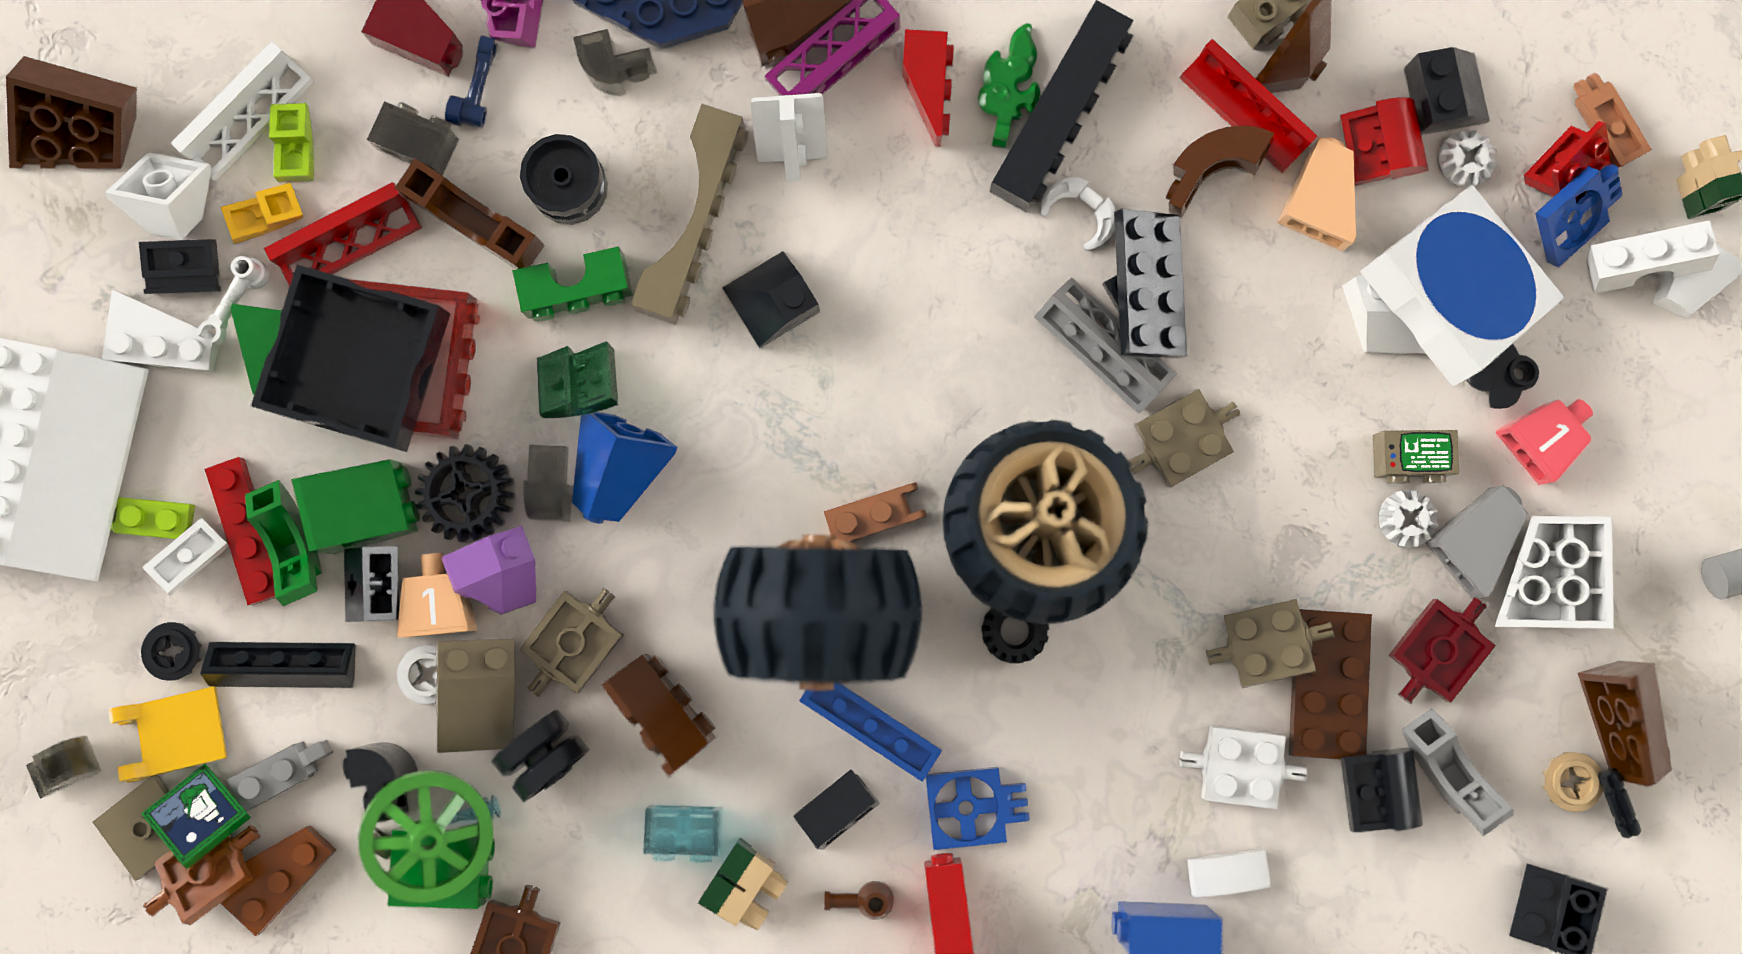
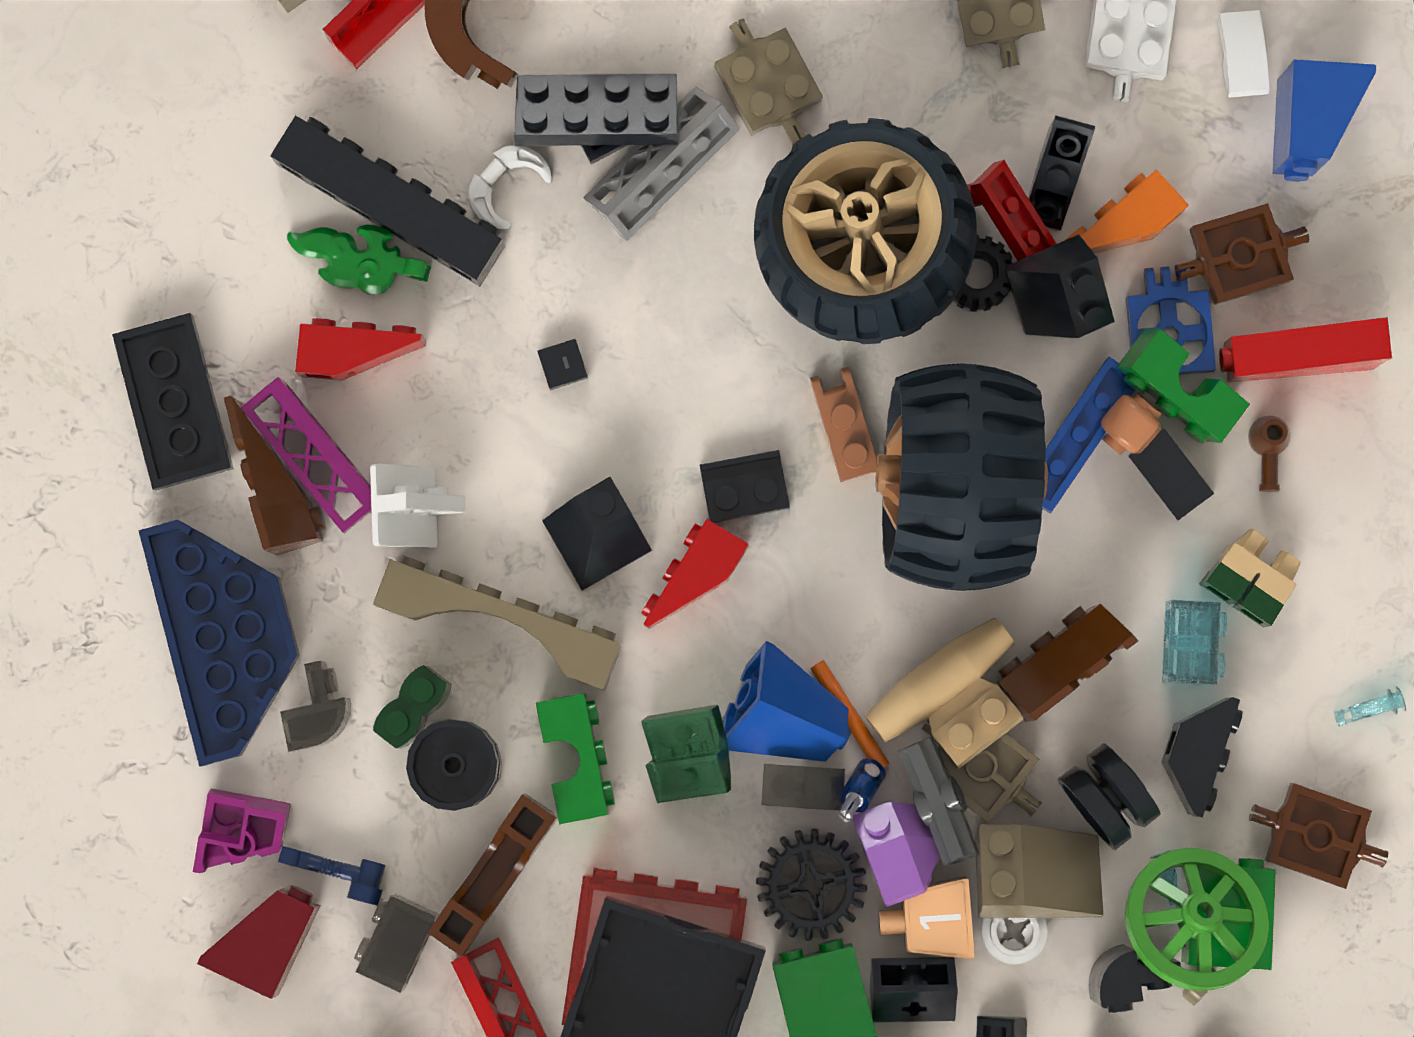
camera: 85 degrees left, 0 degrees up
(535, 602) = (939, 801): none -> dark grey piece
(547, 534) = (861, 787): none -> clear blue piece
(585, 838) = (1199, 752): none -> black slope
(611, 142) = (406, 716): none -> dark green brick
(611, 527) = (857, 726): none -> orange bar
(634, 611) = (950, 692): none -> tan plate
(744, 393) = (705, 566): none -> red slope
(816, 426) = (744, 486): none -> black plate
(878, 771) = (1131, 424): none -> nougat head
(921, 264) = (562, 364): none -> black tile
(932, 792) = (1154, 367): none -> green arch
(999, 704) = (1060, 291): none -> black slope
(1041, 872) = (1241, 254): none -> reddish brown plate
(1062, 662) = (1010, 210): none -> red piece
(1071, 776) = (1137, 217): none -> orange slope
(1109, 700) = (1059, 169): none -> black slope

